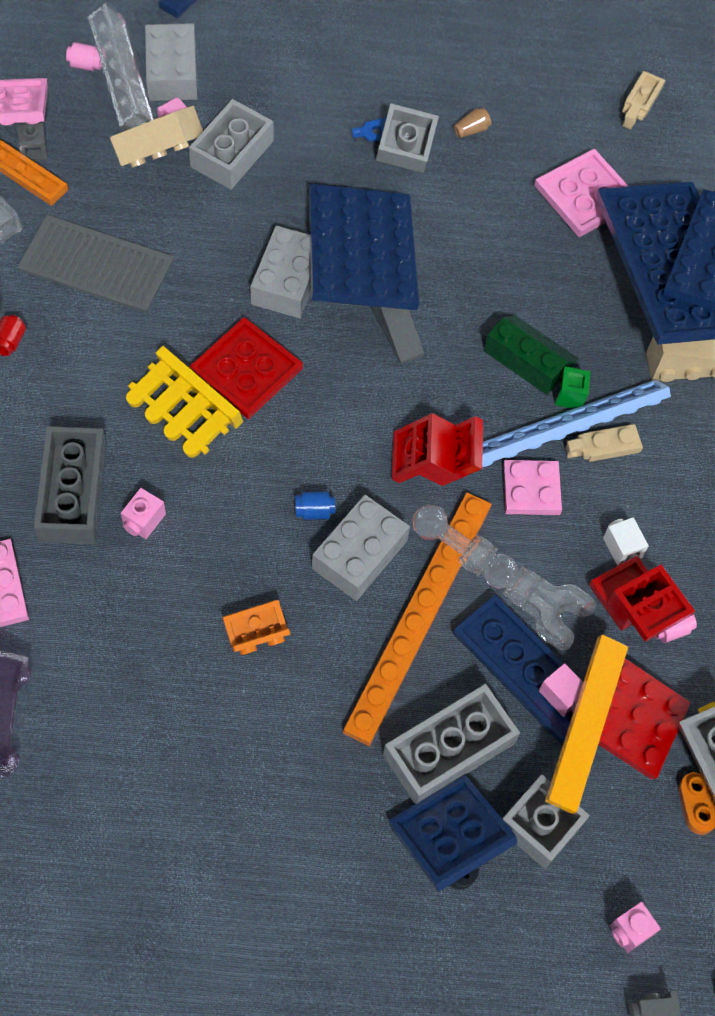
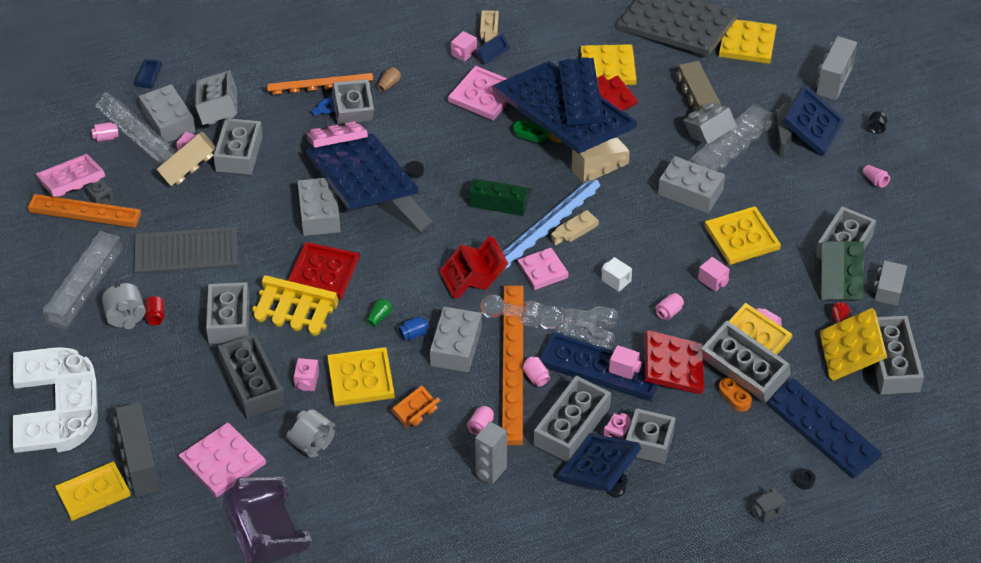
camera: 20 degrees left, 15 degrees down
(91, 380) = (227, 312): none -> light grey brick
(98, 607) = (311, 432): none -> light grey brick
(210, 547) = (360, 376): none -> yellow plate
(235, 65) = (216, 98): none -> light grey brick
(285, 460) = (379, 311): none -> green cone
(307, 754) = (491, 452): none -> light grey brick
(330, 687) = (480, 419): none -> bright pink brick
(360, 178) = (336, 134): none -> bright pink plate
(372, 93) = (313, 84): none -> orange plate
(440, 267) = (415, 169): none -> black tile
(441, 645) = (536, 371): none -> bright pink brick
(503, 795) = (618, 426): none -> bright pink brick
(573, 388) = (539, 203): green panel -> none
(586, 724) = (648, 370): light orange tile -> none
(593, 114) = (463, 46): none -> bright pink brick
(618, 276) = (530, 131): none -> green plate
(629, 132) = (492, 48): none -> dark blue tile
(634, 927) = (733, 468): bright pink brick -> none
(641, 598) = (643, 297): red bracket -> none

